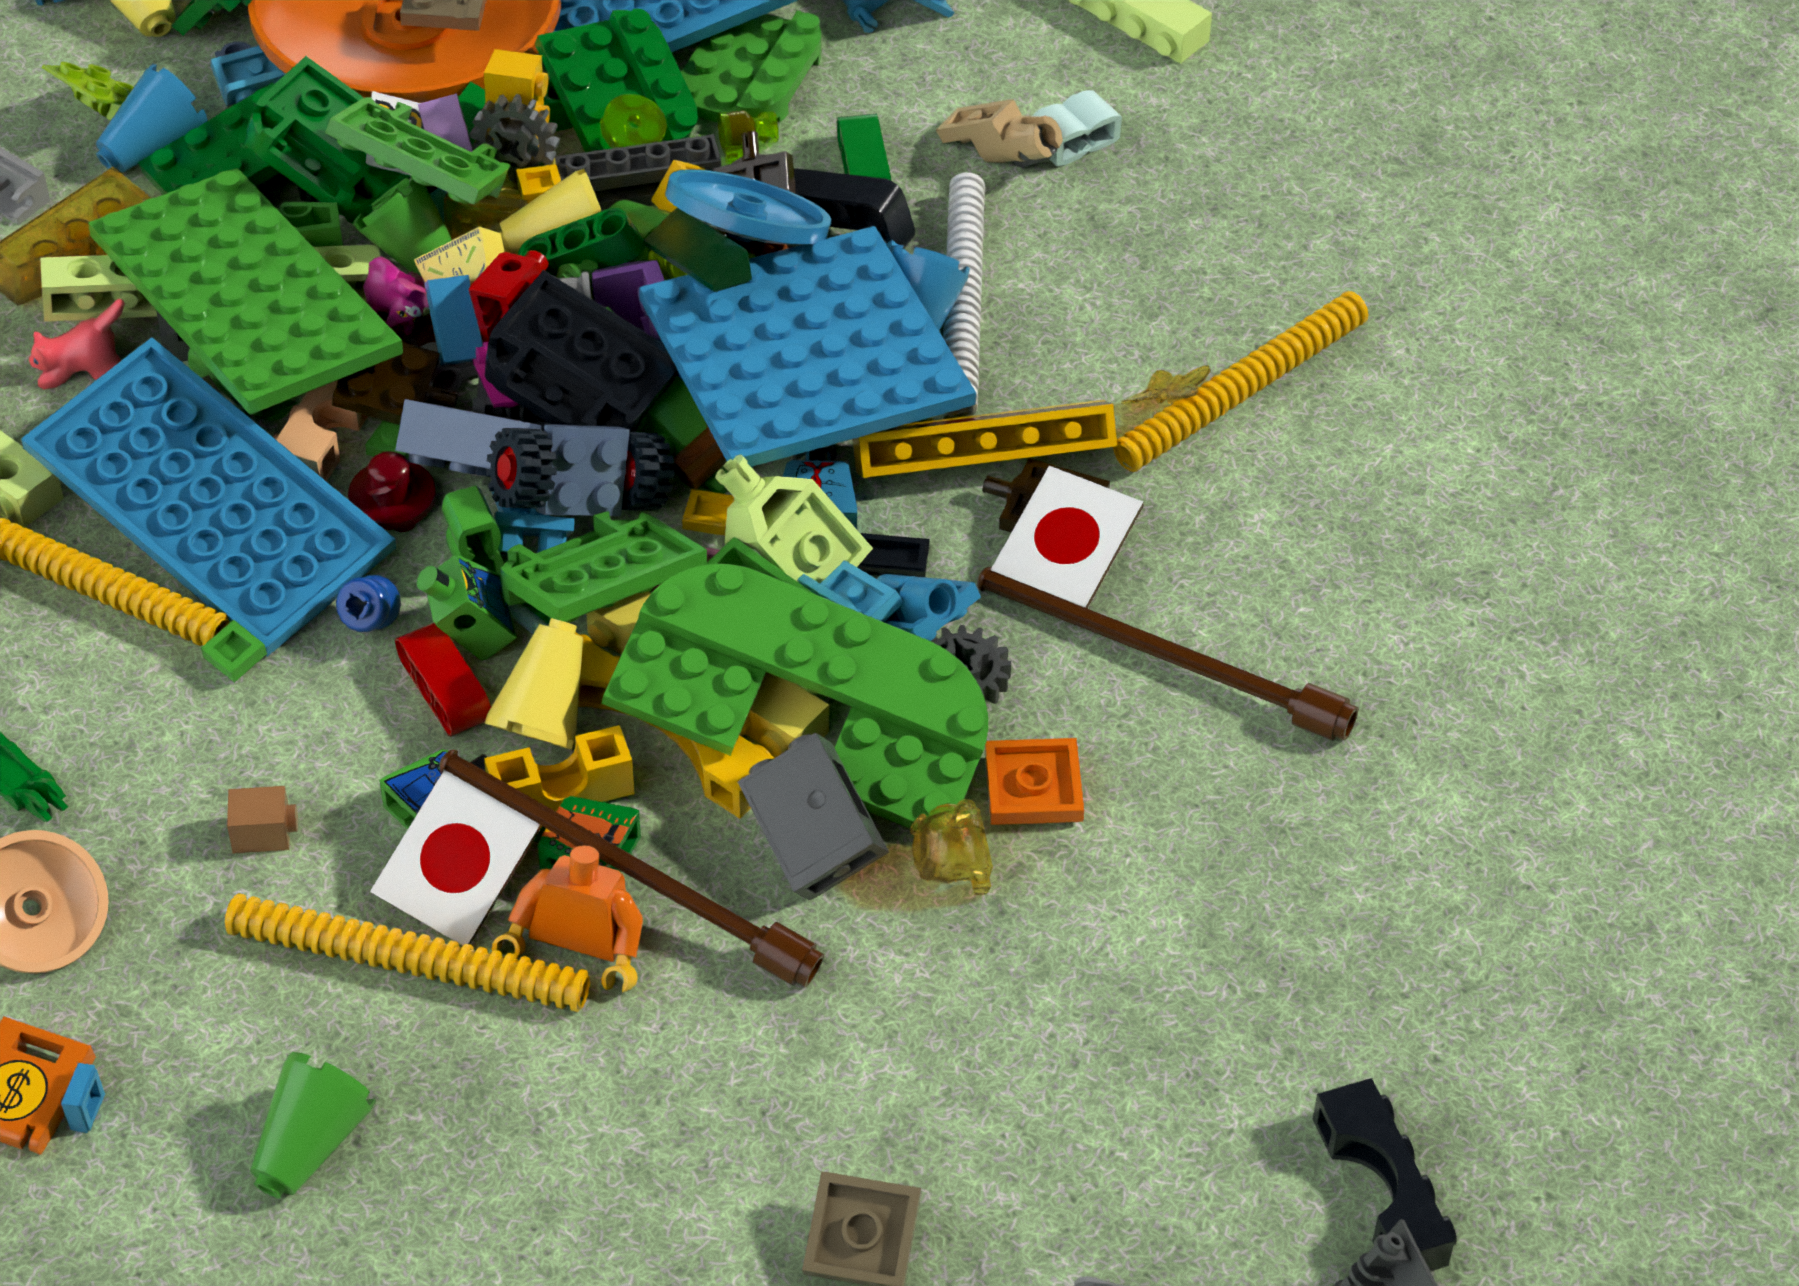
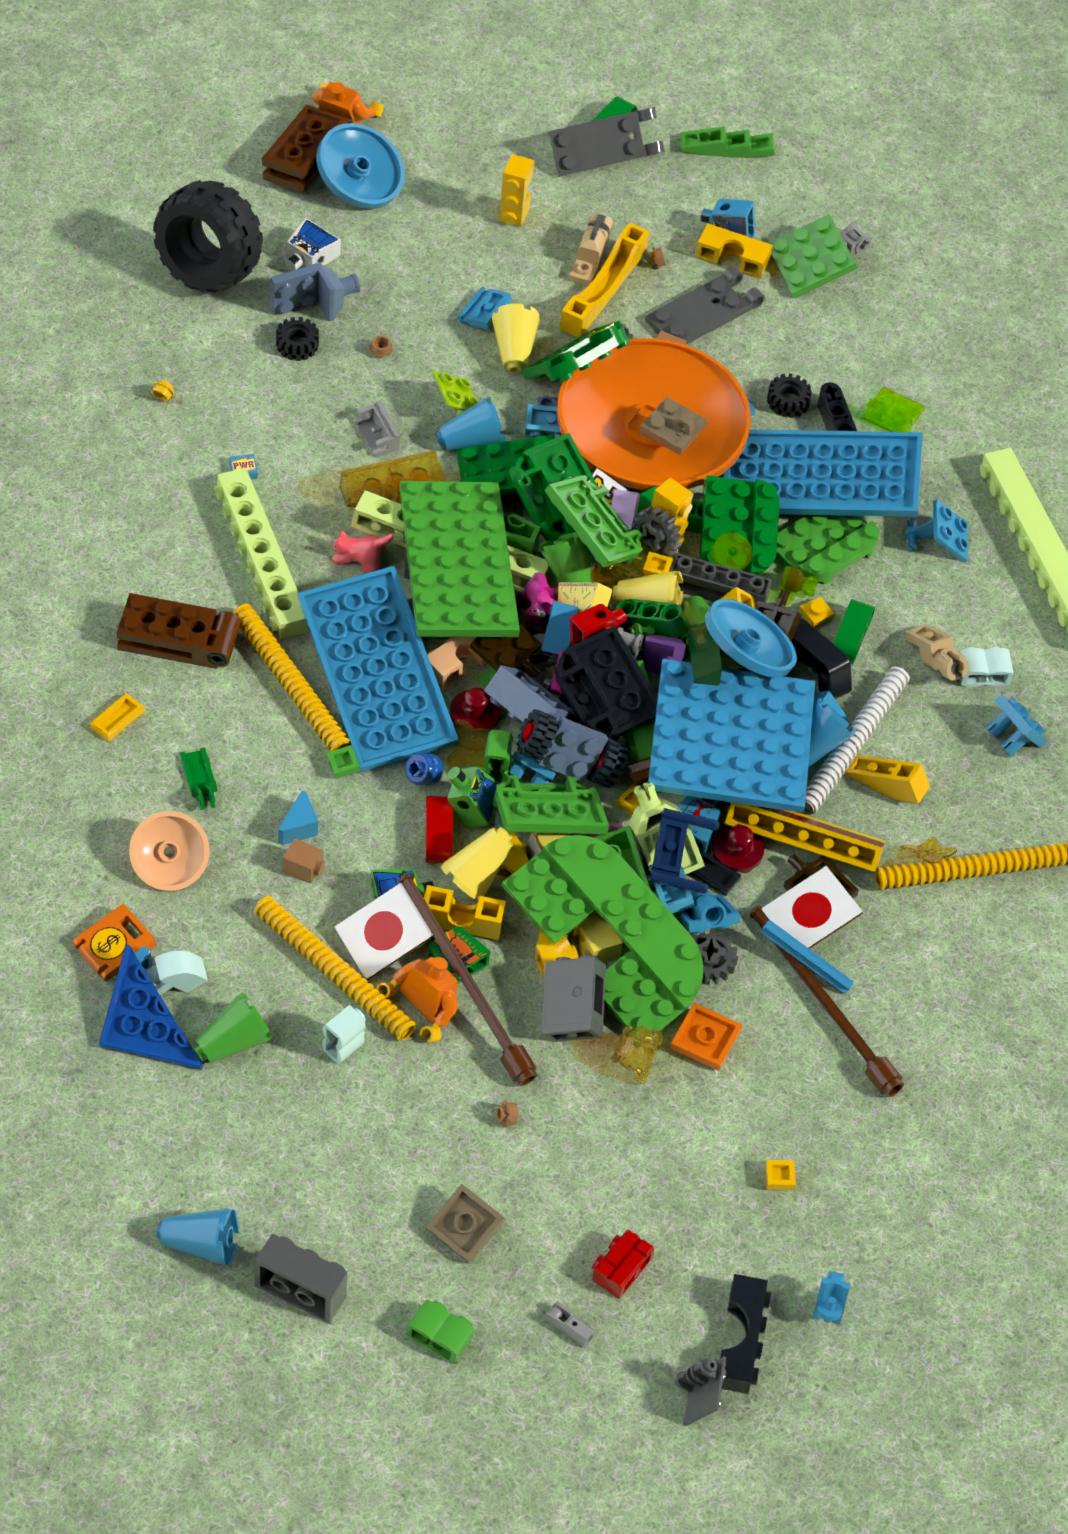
camera: 25 degrees right, 5 degrees up
(141, 1183) = (141, 1021): none -> blue tile
(148, 1077) = (177, 970): none -> light aqua brick
(220, 764) = (300, 821): none -> dark azure slope
(414, 542) = (470, 746): none -> clear yellow piece
(489, 1040) = (344, 1034): none -> light aqua brick
(607, 636) = (532, 847): none -> white sticker
(804, 153) = (816, 612): none -> yellow plate
(815, 1035) = (507, 1113): none -> medium nougat plate
(822, 534) = (671, 846): none -> dark blue plate
(900, 503) = (738, 848): none -> dark red plate
(1051, 317) = (894, 778): none -> yellow slope
(1103, 601) = (806, 956): none -> dark azure axle
(1138, 1167) = (622, 1263): none -> red brick
(1186, 170) = (1018, 715): none -> dark azure plate
(1274, 921) = (780, 1175): none -> yellow plate
(1480, 1056) = (831, 1298): none -> dark azure hips

